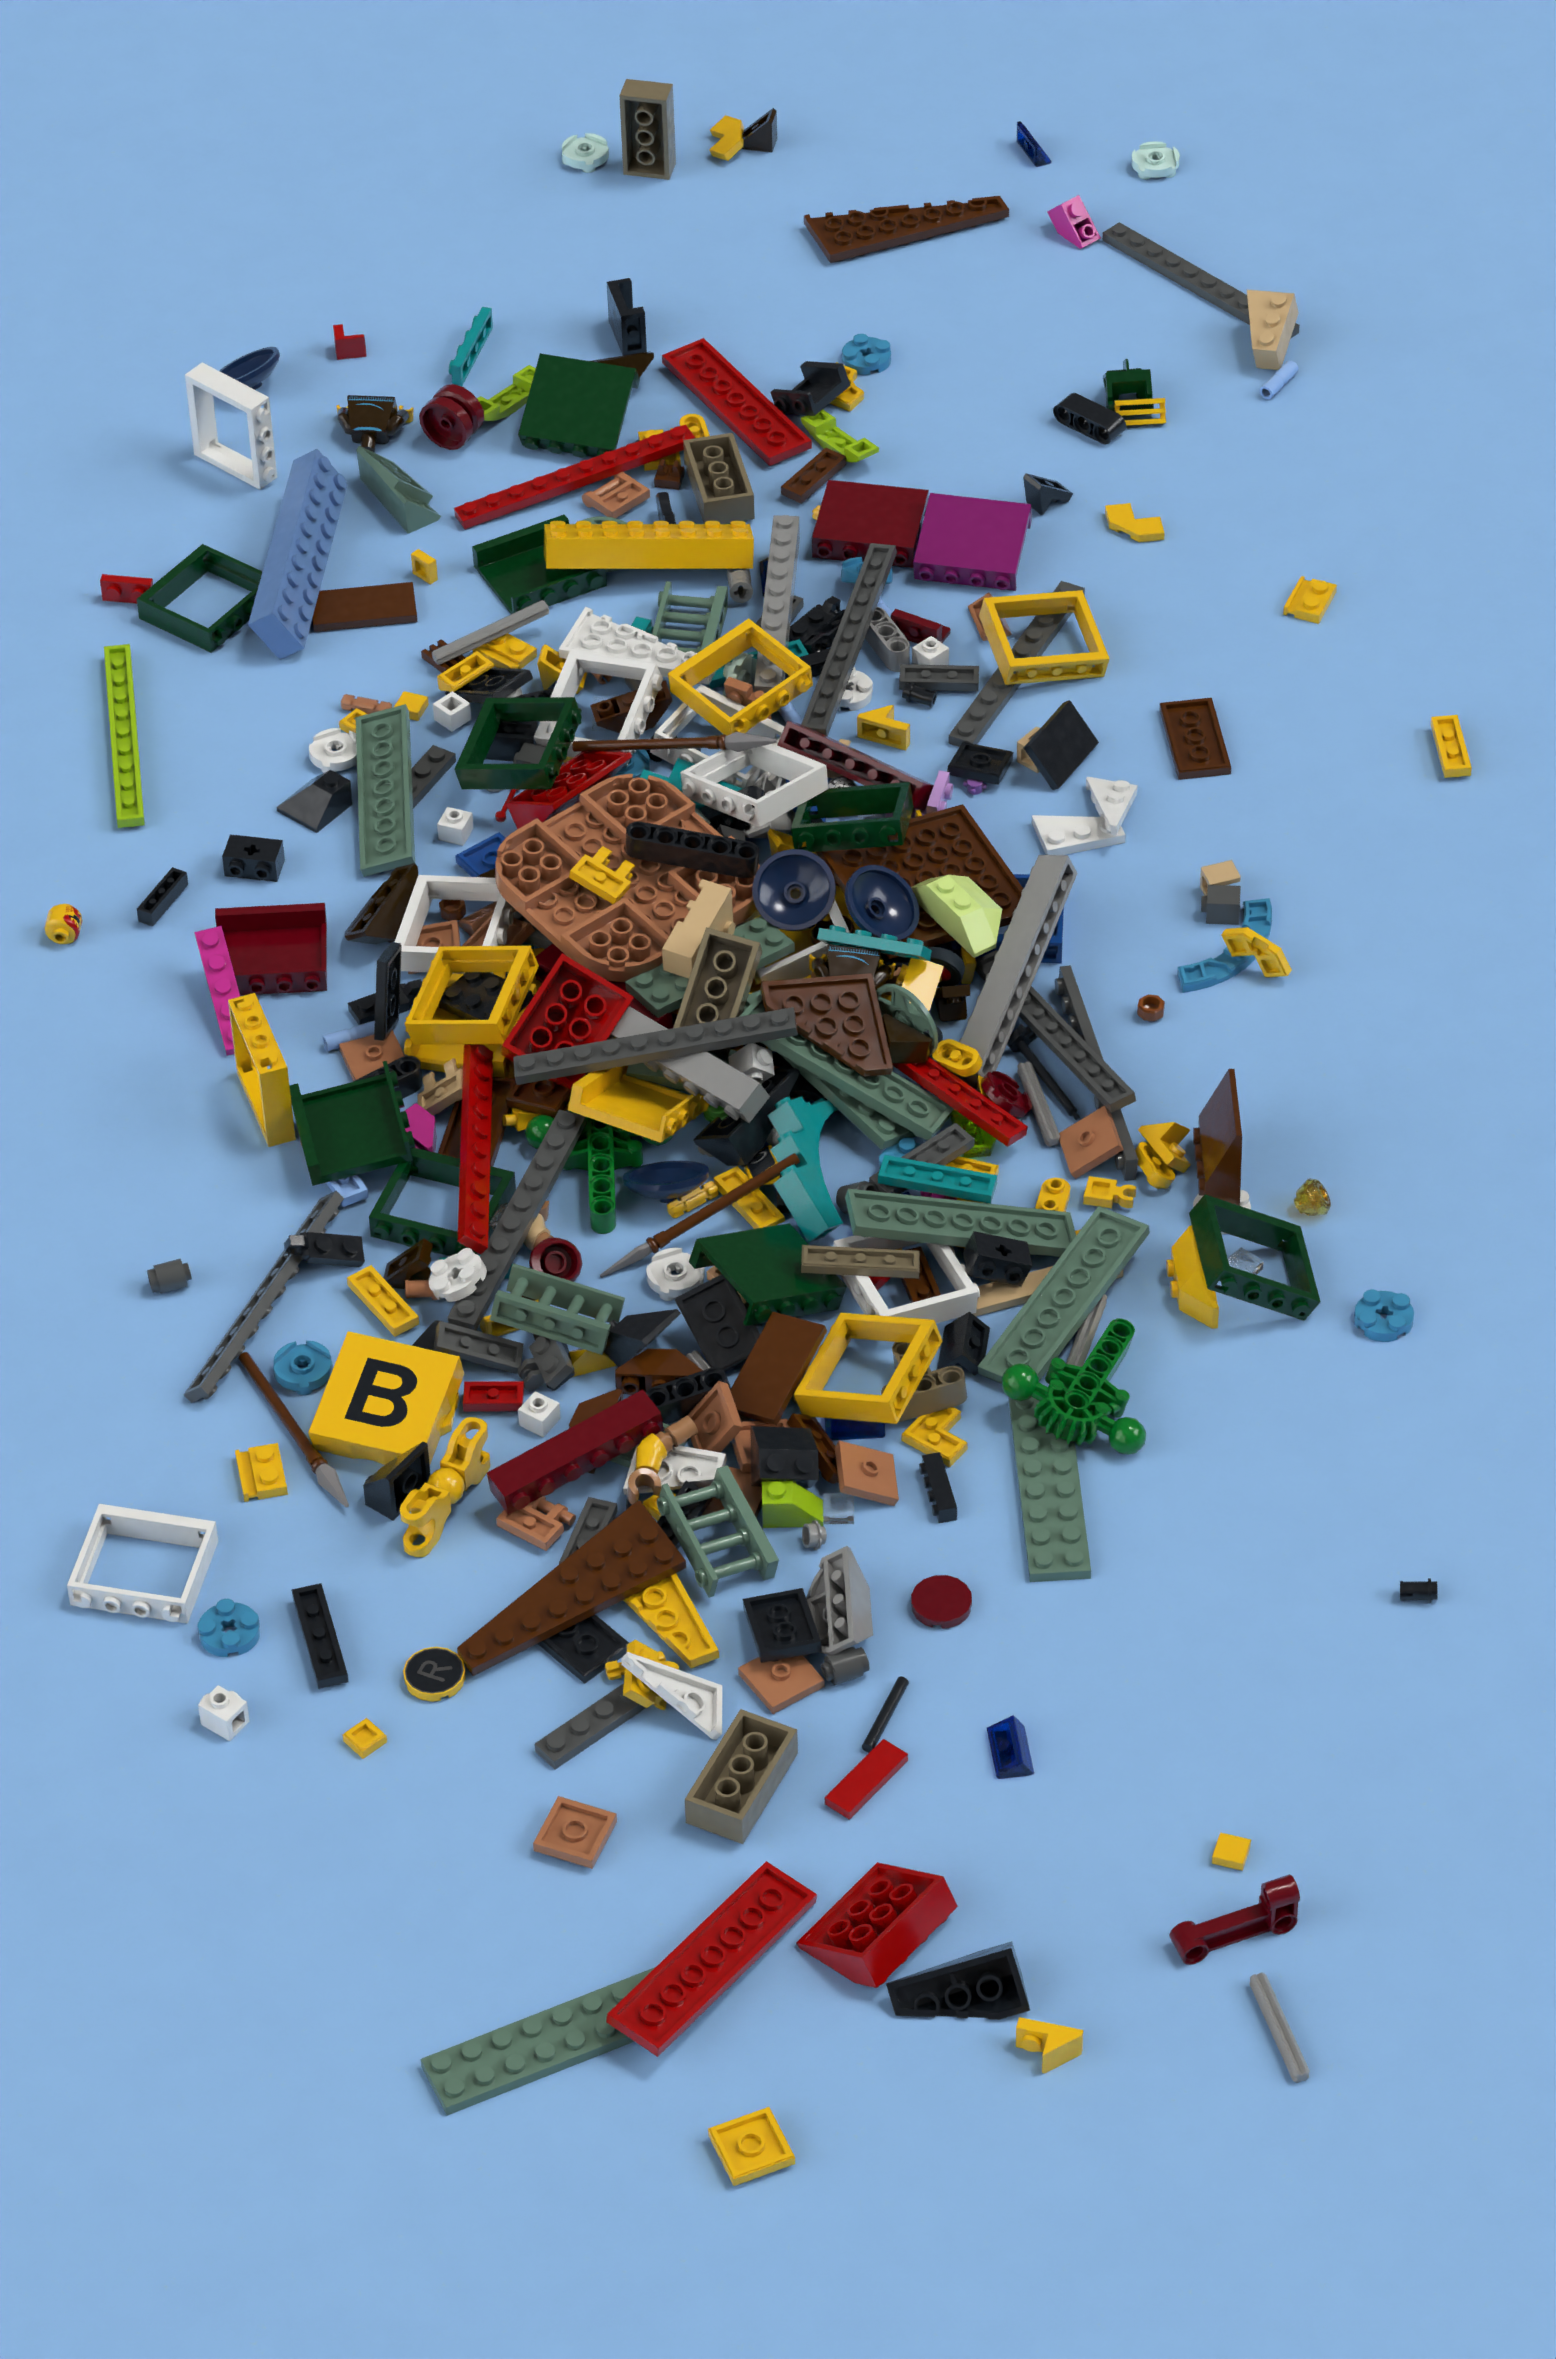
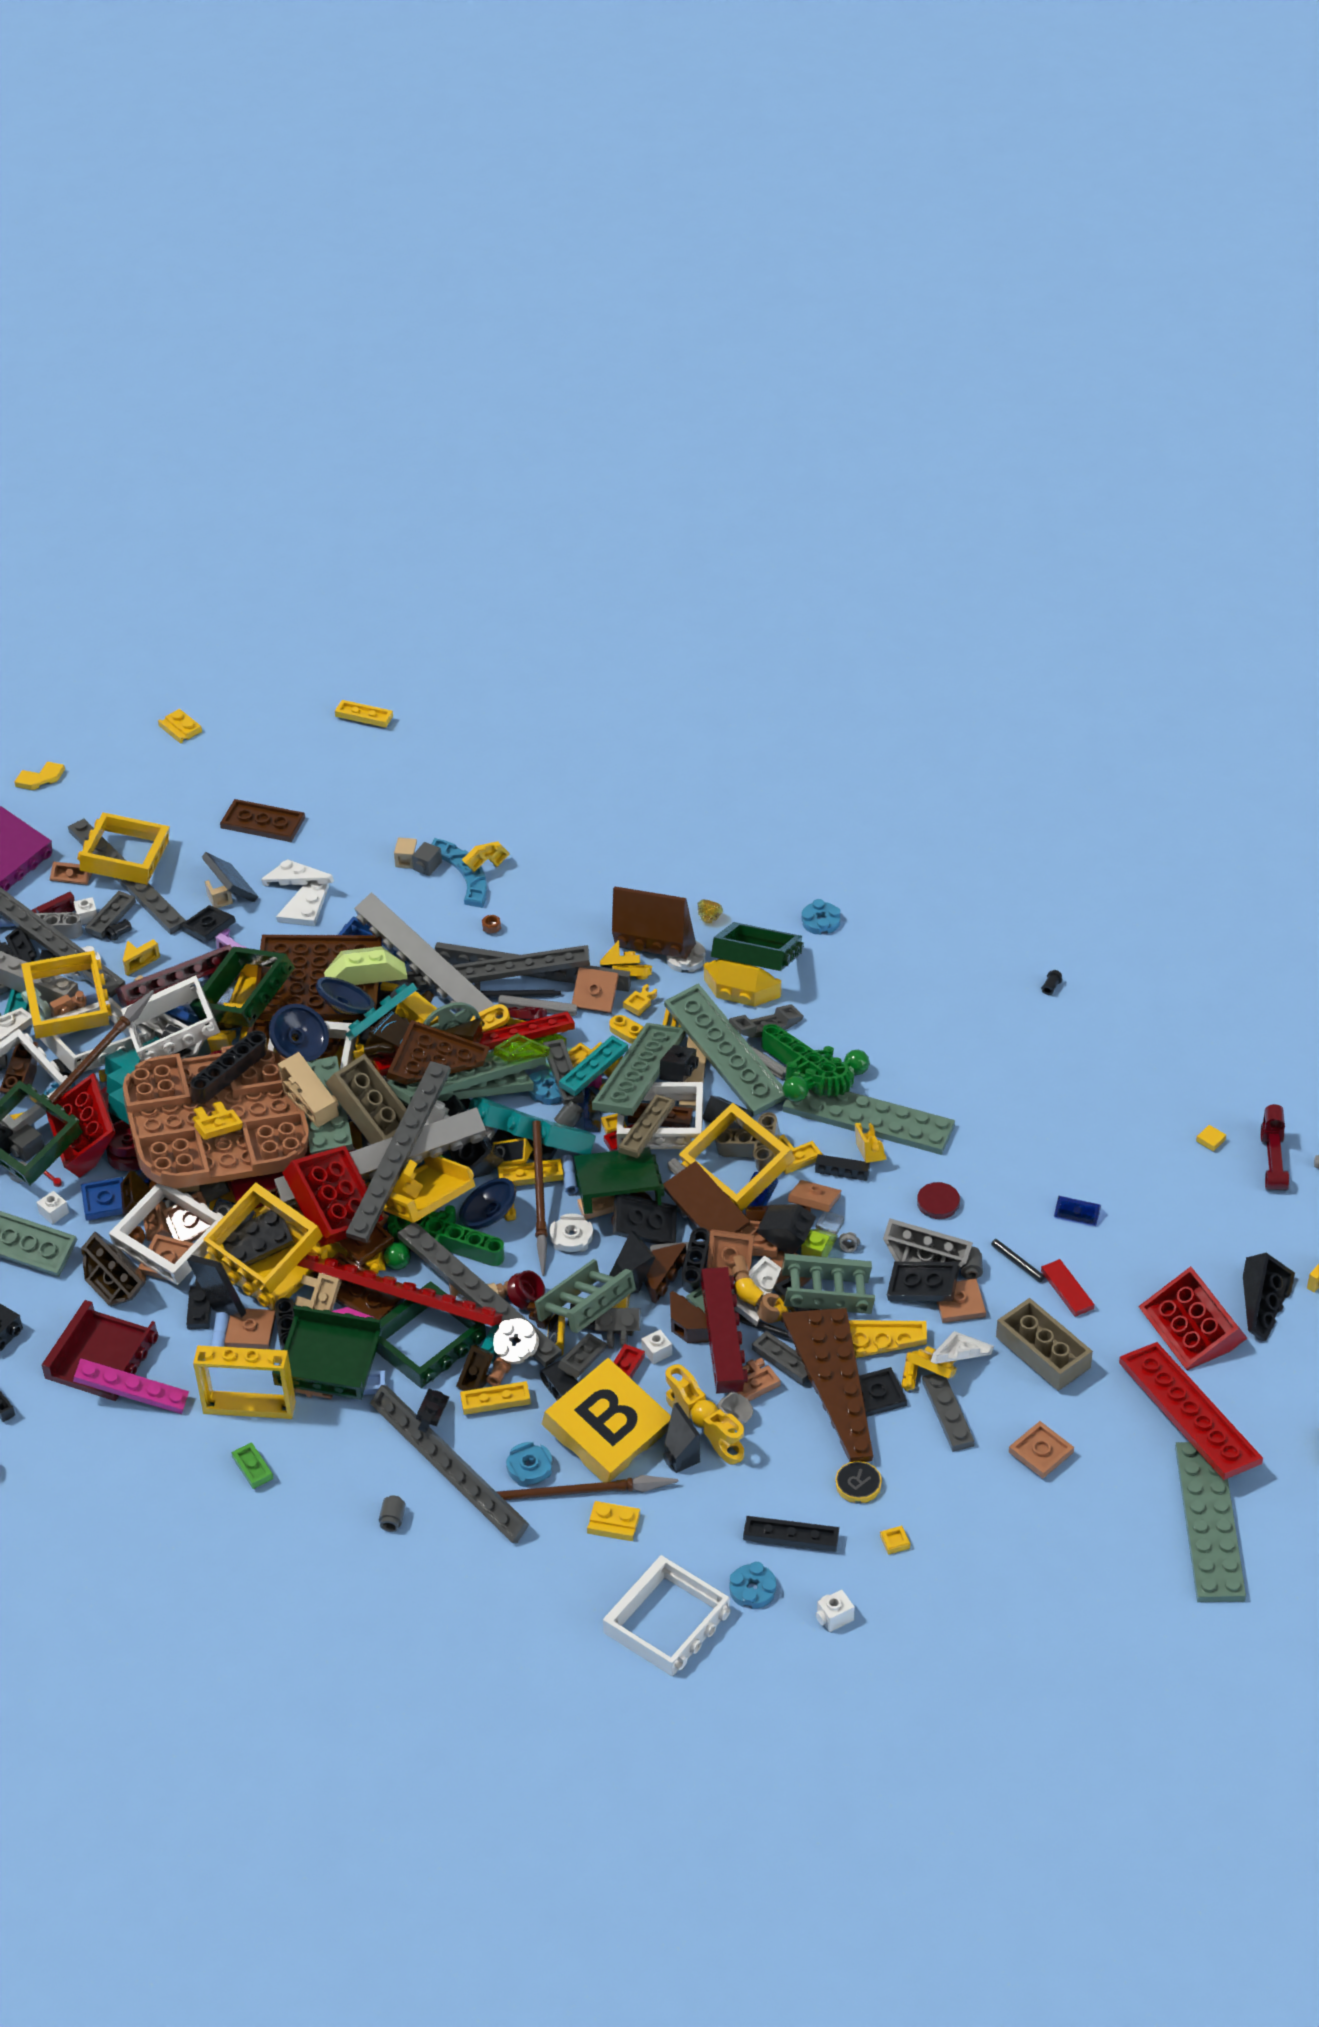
camera: 65 degrees left, 0 degrees up
(177, 1137) = (252, 1465): none -> bright green plate
(472, 1515) = (736, 1405): none -> light grey hair
(631, 1082) = (406, 1184): none -> yellow slope
(918, 1100) = (520, 1048): none -> clear neon green wing
(986, 1493) = (868, 1144): none -> yellow hinge
(1149, 1333) = (783, 1017): none -> dark grey slope

